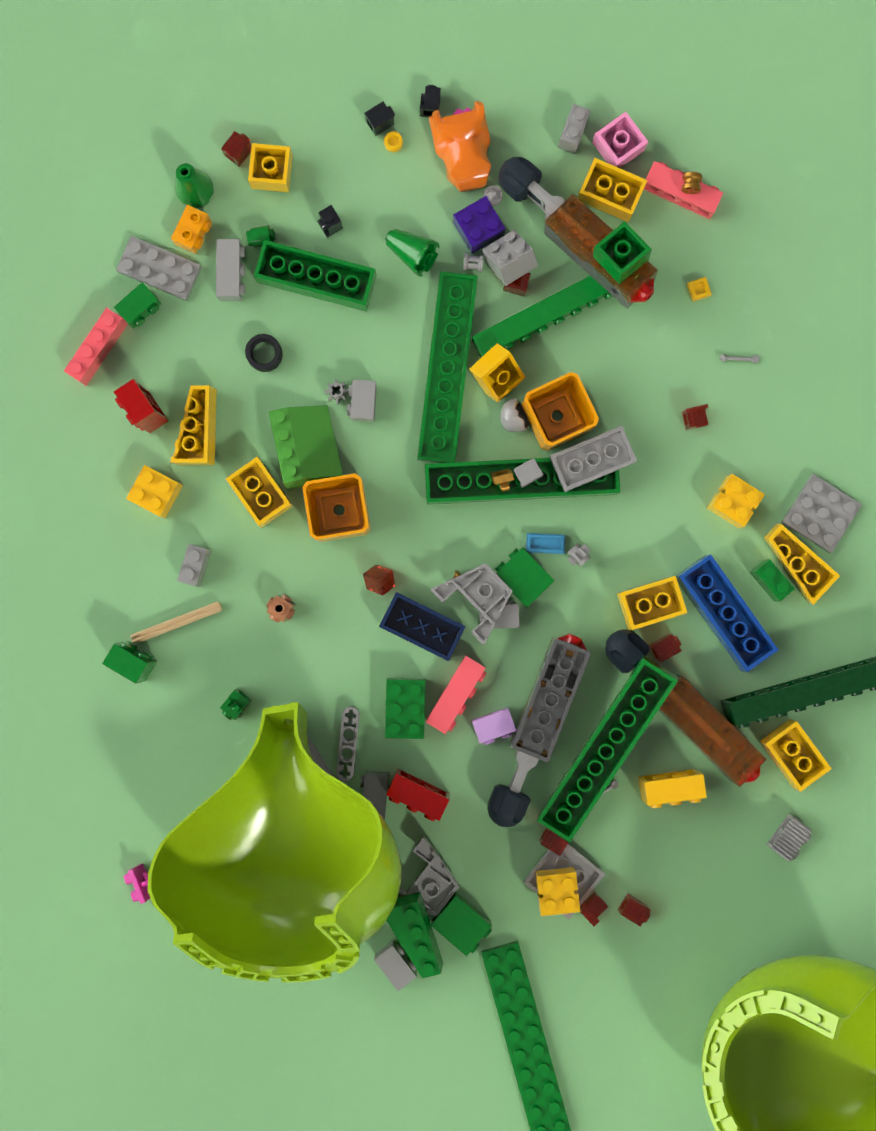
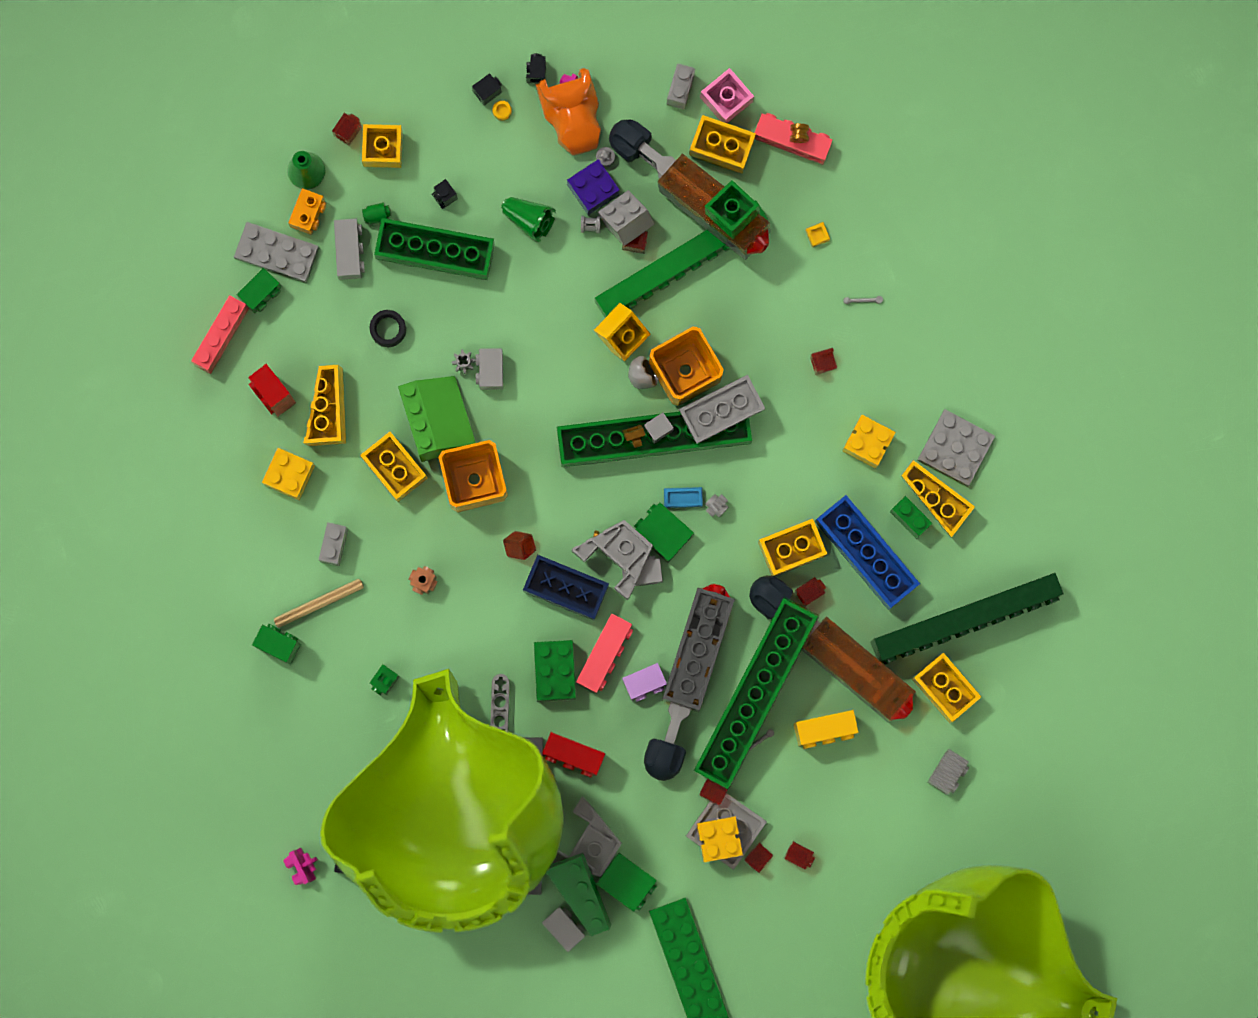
camera: 10 degrees left, 5 degrees down
(447, 367) = (572, 330): green plate -> none

